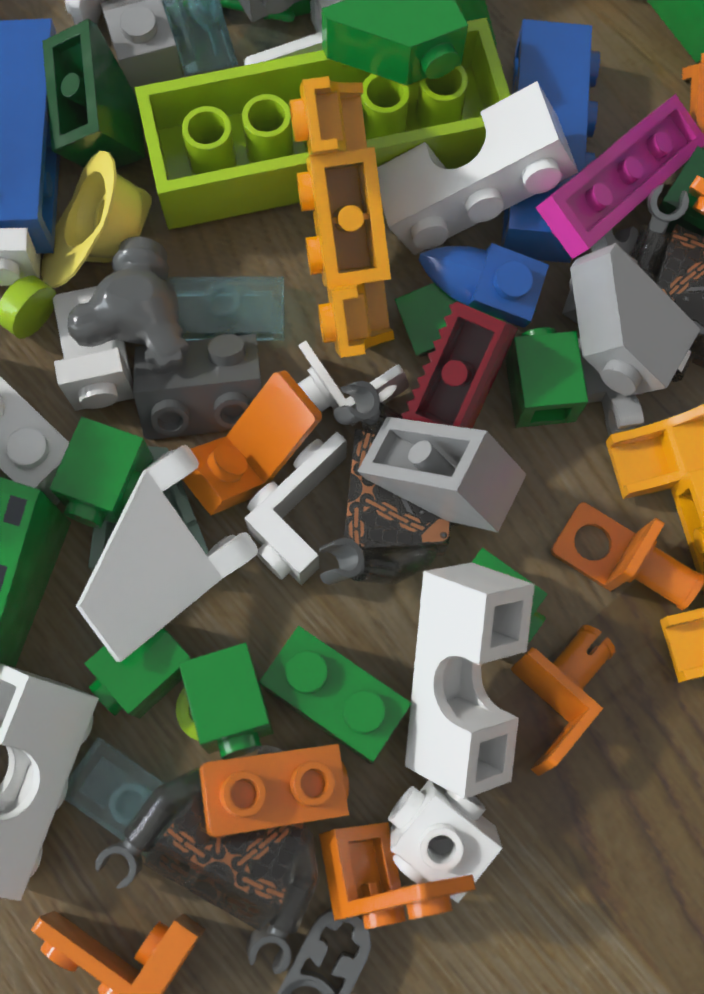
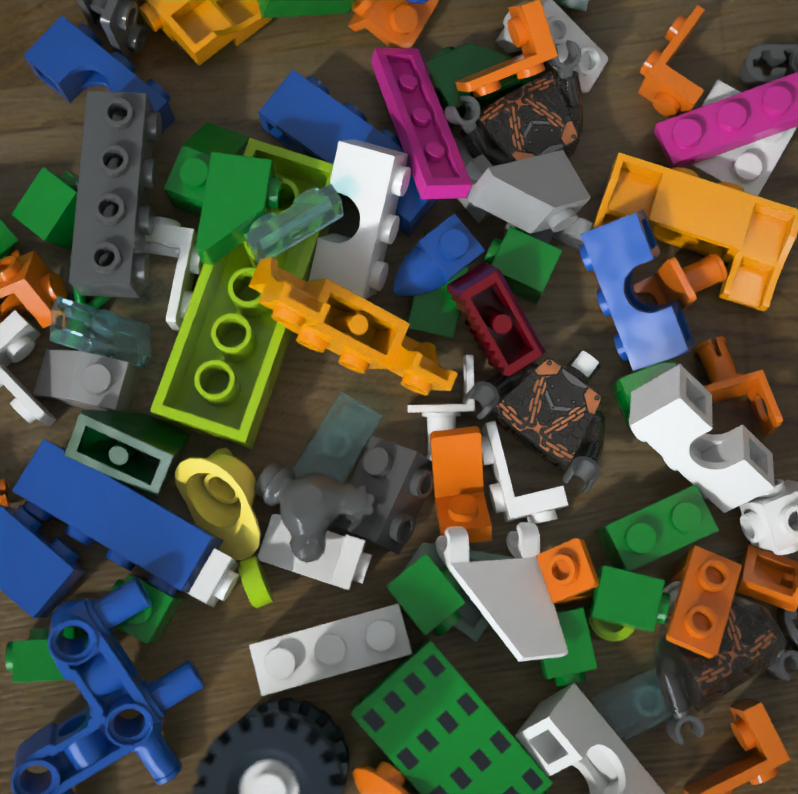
camera: 60 degrees left, 5 degrees up
(221, 615) = (568, 572): none -> orange bracket
(418, 97) = (311, 213): none -> clear light blue plate
(445, 470) = (562, 373): light grey slope -> none
(620, 459) = (645, 331): none -> arch

